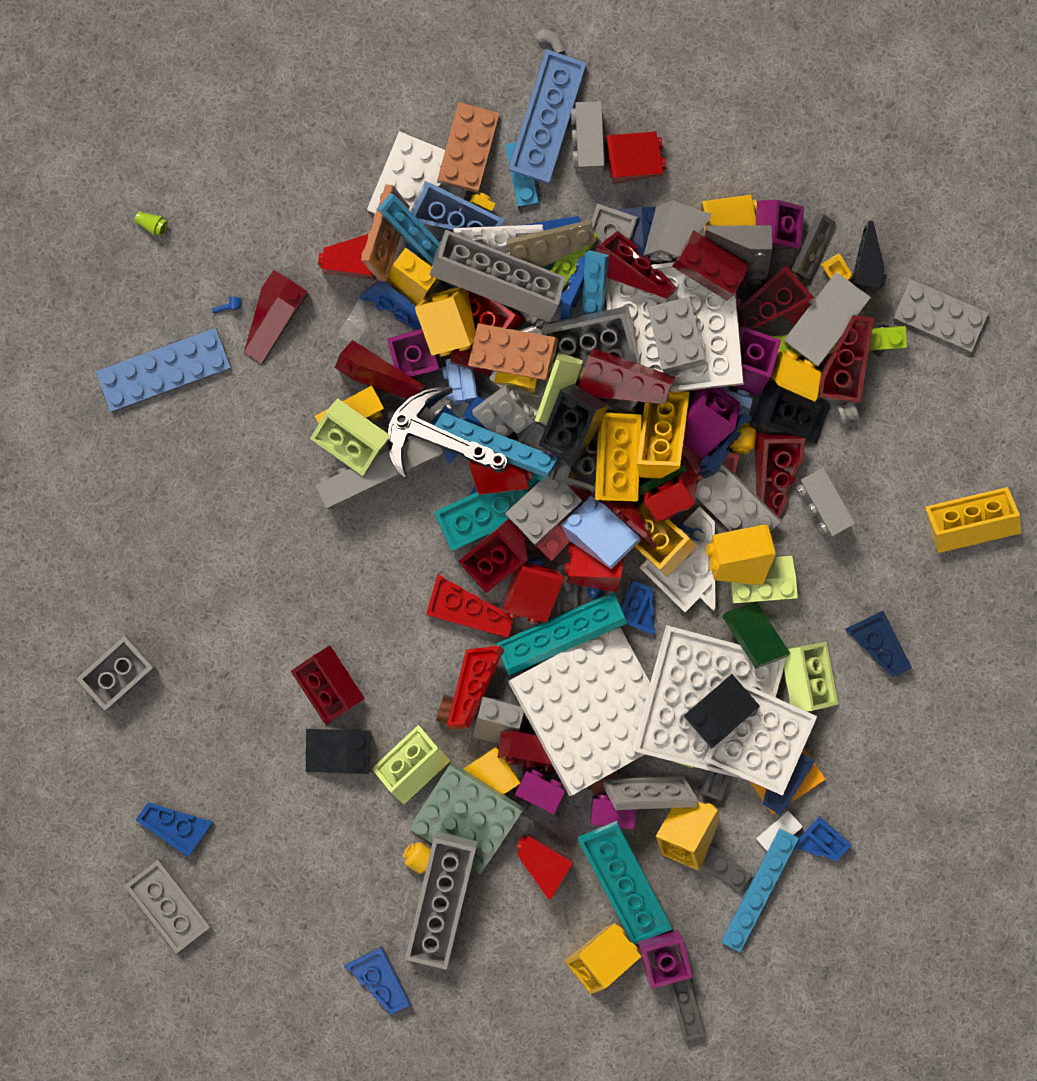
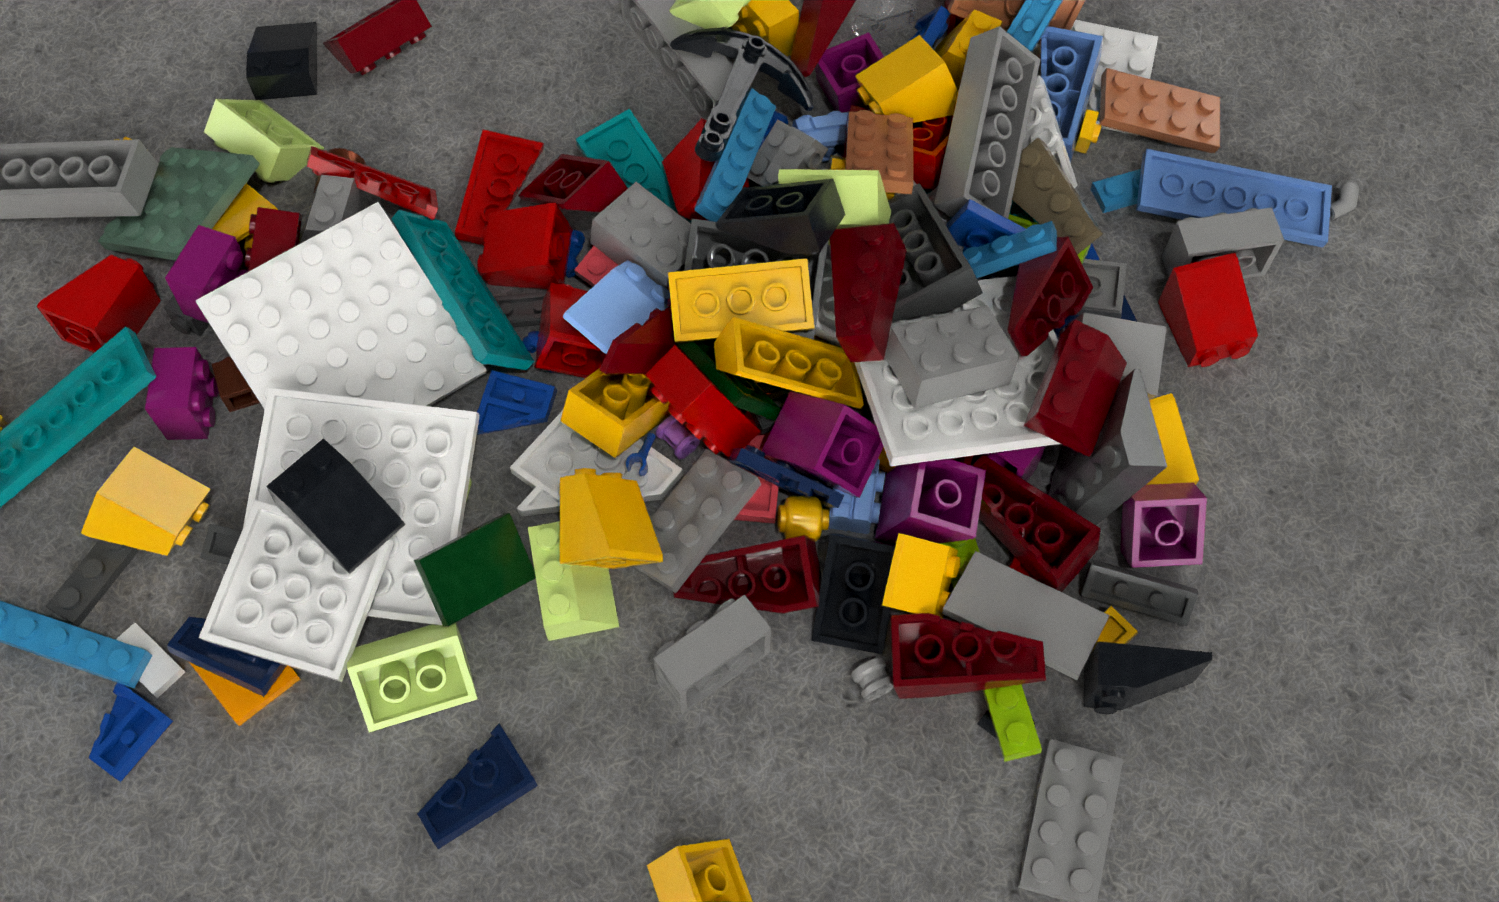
camera: 80 degrees right, 25 degrees down
(650, 793) = (206, 434): light grey tile -> none

